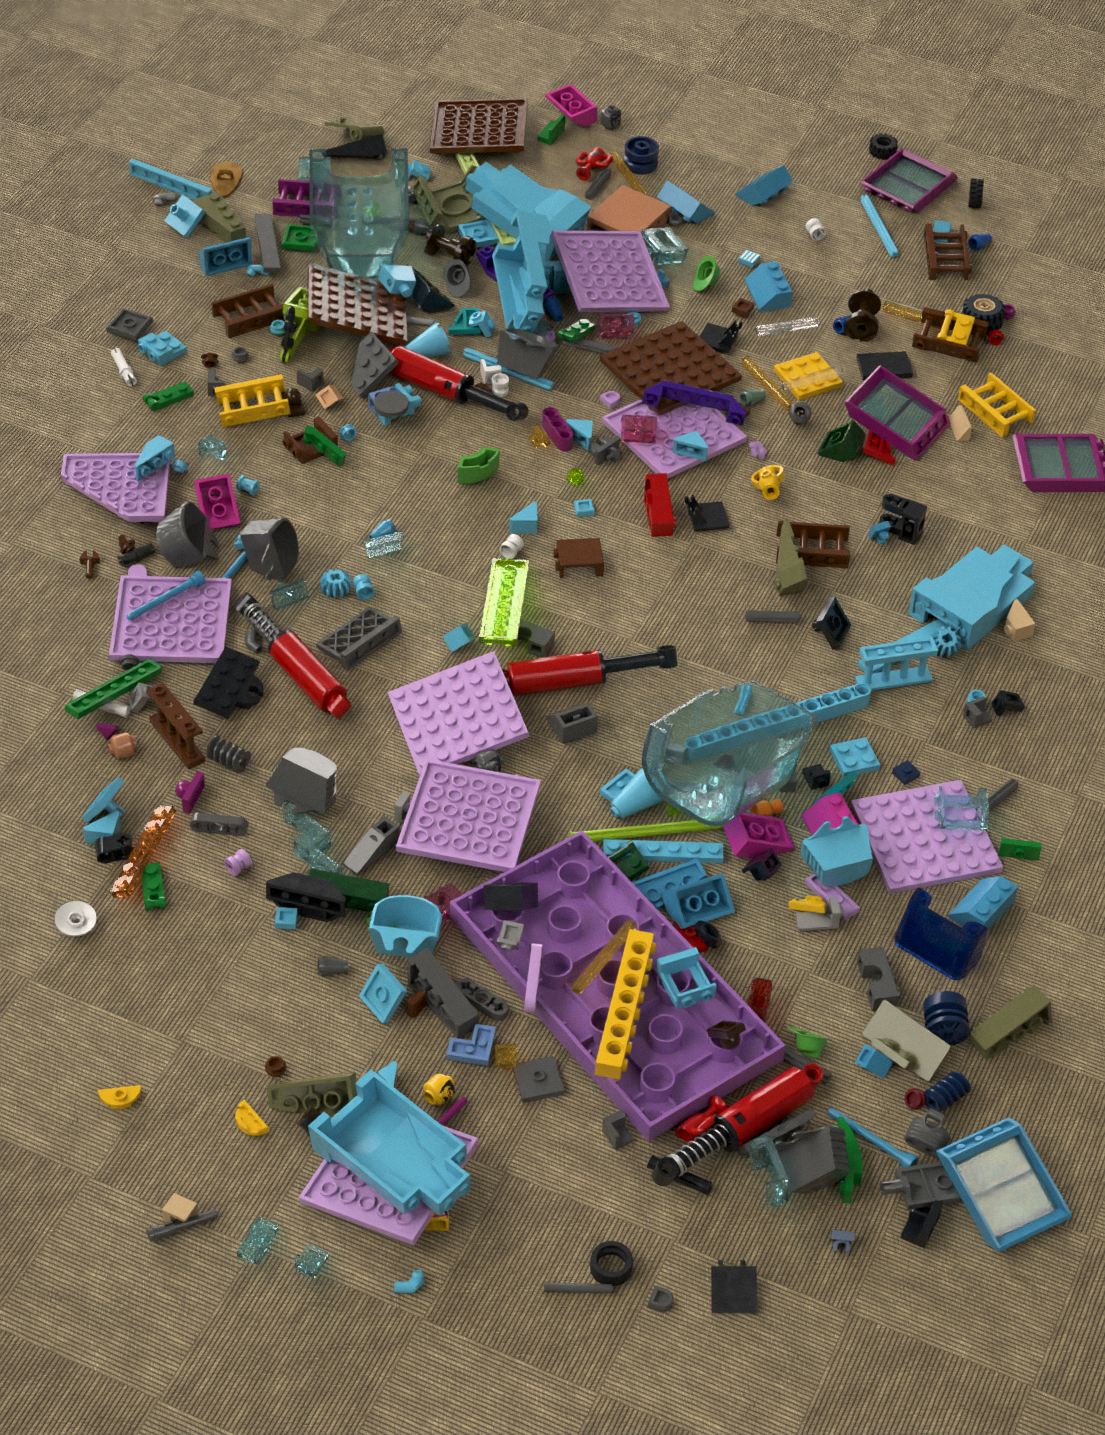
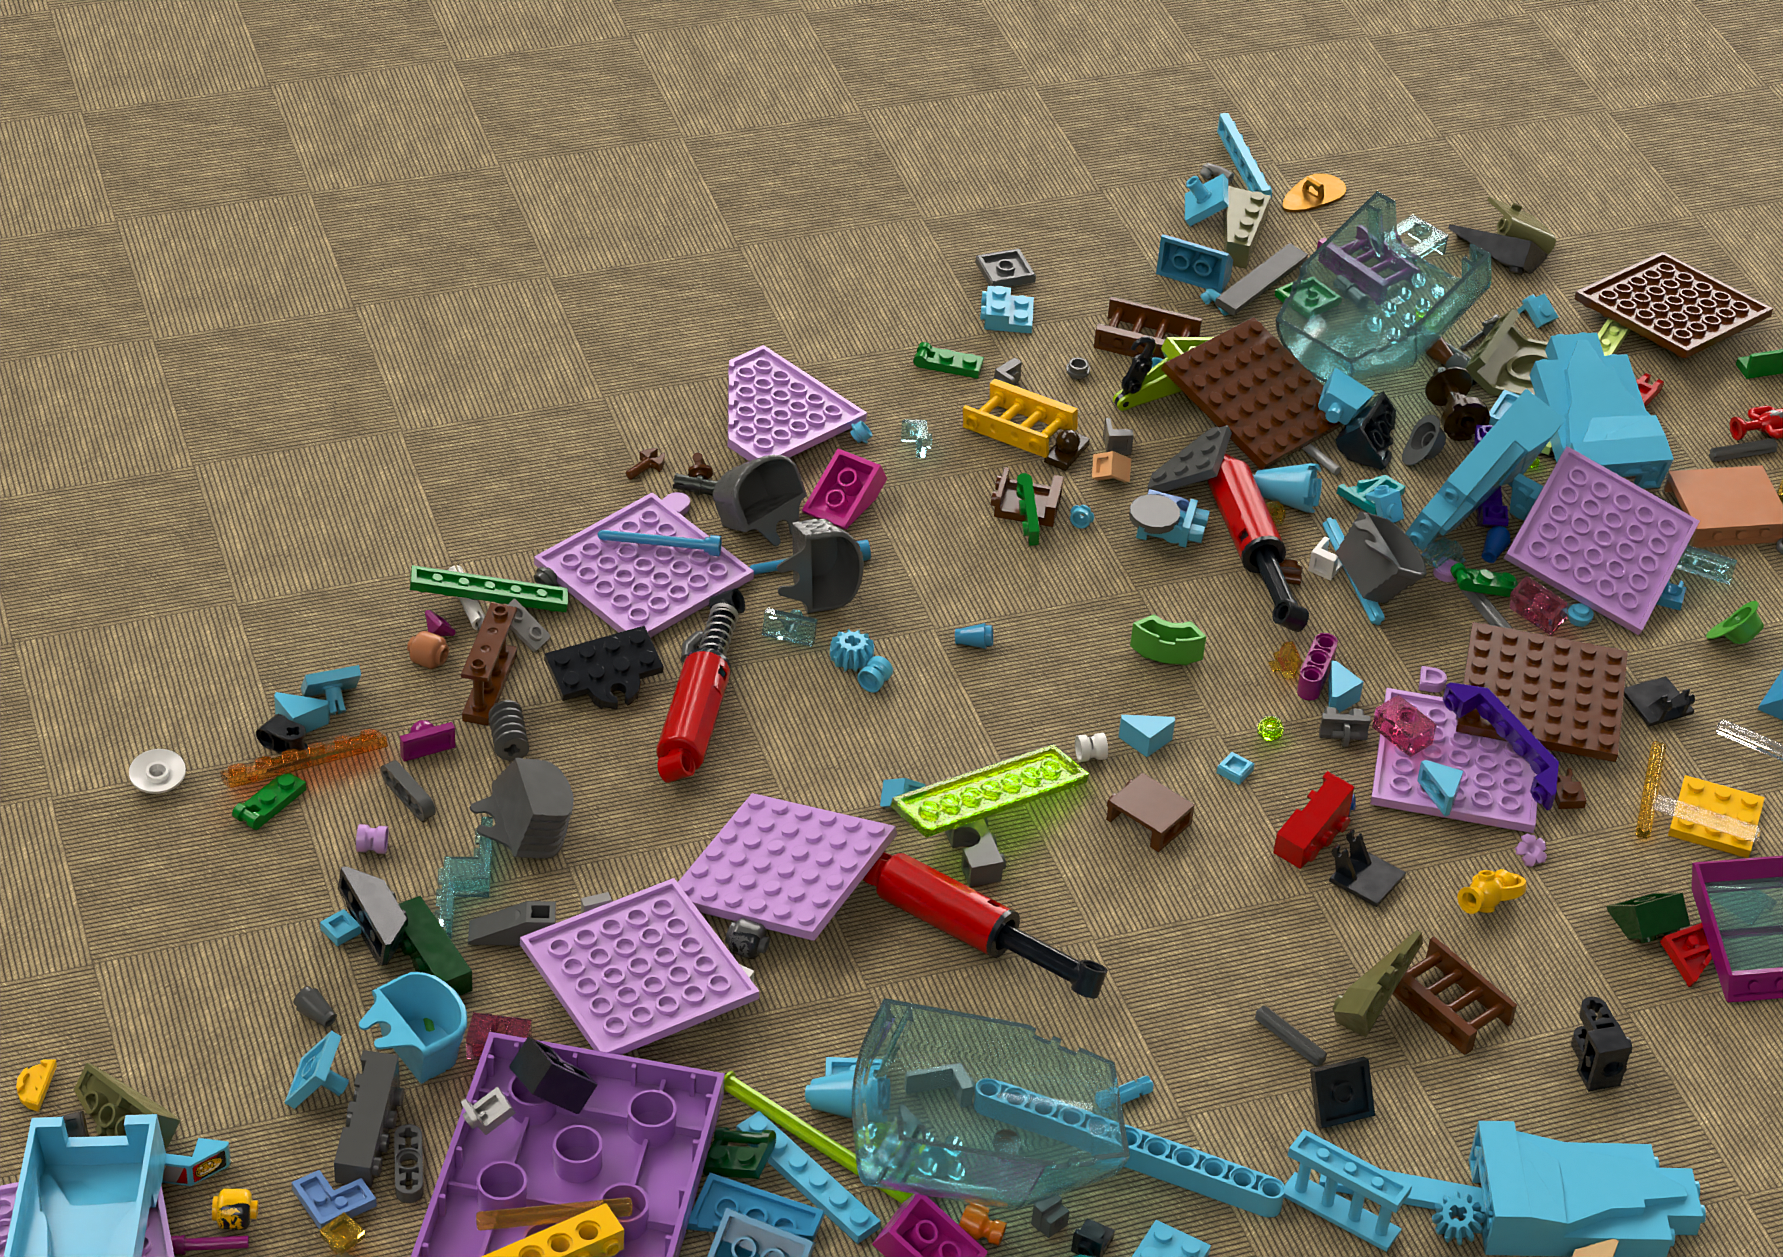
camera: 45 degrees right, 5 degrees down
(125, 370) = (938, 308): white pin -> none
(153, 456) = (834, 400): medium azure slope -> none
(210, 359) = (1037, 352): reddish brown plate -> none
(243, 482) = (901, 496): medium azure bush -> none
(275, 1066) = (130, 1055): reddish brown plate -> none
(365, 644) = (810, 732): dark grey fence -> none
(383, 544) = (955, 647): clear light blue bracket -> none
(416, 1004) = (335, 1109): reddish brown tile -> none
(500, 385) = (1316, 579): white wheel -> none
(533, 978) = (449, 1171): lavender beam -> none
(574, 722) = (895, 969): dark grey slope -> none
(664, 254) = (1718, 573): clear light blue panel -> none
(742, 307) = (1736, 689): reddish brown plate -> none
(750, 397) = (1607, 790): sand green cone -> none
(796, 408) = (1638, 844): dark grey head -> none
(880, 532) = (1555, 1041): dark azure tile -> none

